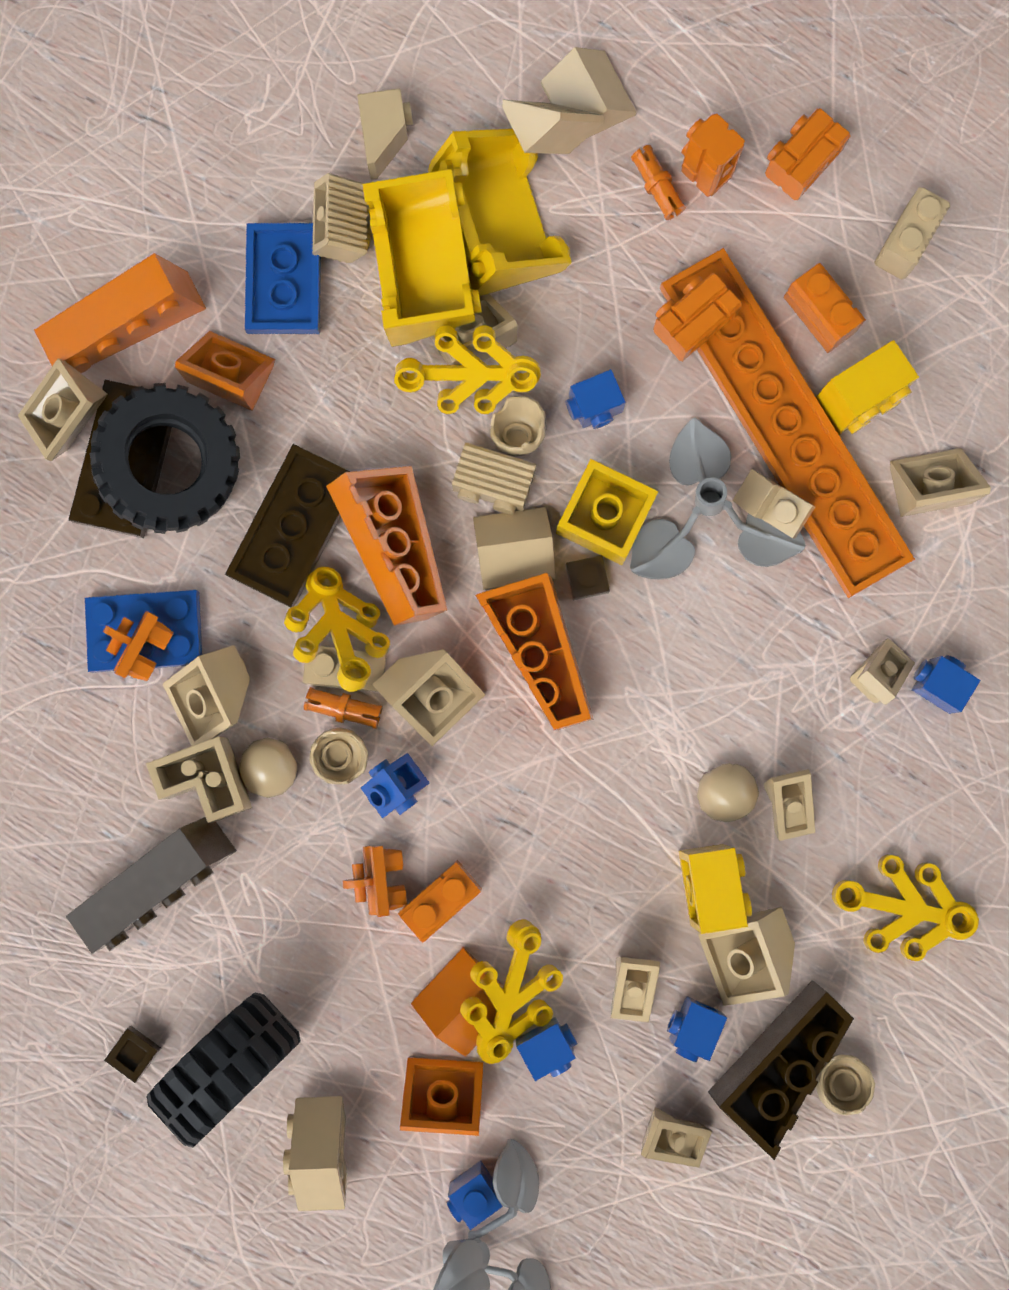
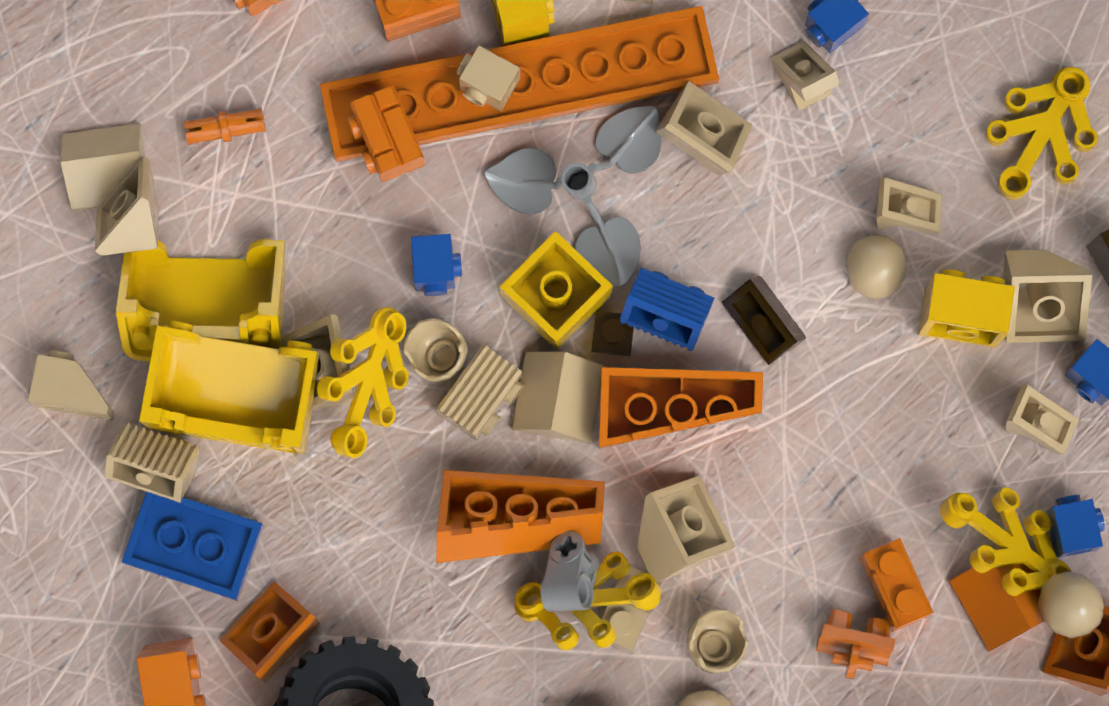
camera: 70 degrees left, 5 degrees down
(289, 528) = (461, 618): dark brown plate -> none
(343, 708) = (667, 624): orange pin -> none
(348, 608) = (569, 574): none -> light grey piece
(394, 785) = (768, 601): blue brick -> none
(471, 1067) = (1071, 604): none -> tan hair
(623, 616) = (667, 308): none -> blue brick
(645, 707) = (764, 319): none -> dark brown slope
(711, 154) = (221, 63): orange brick -> none
(773, 504) = (600, 124): tan slope -> none
(778, 388) = (487, 78): none -> tan brick
(801, 598) = (705, 129): none -> tan slope

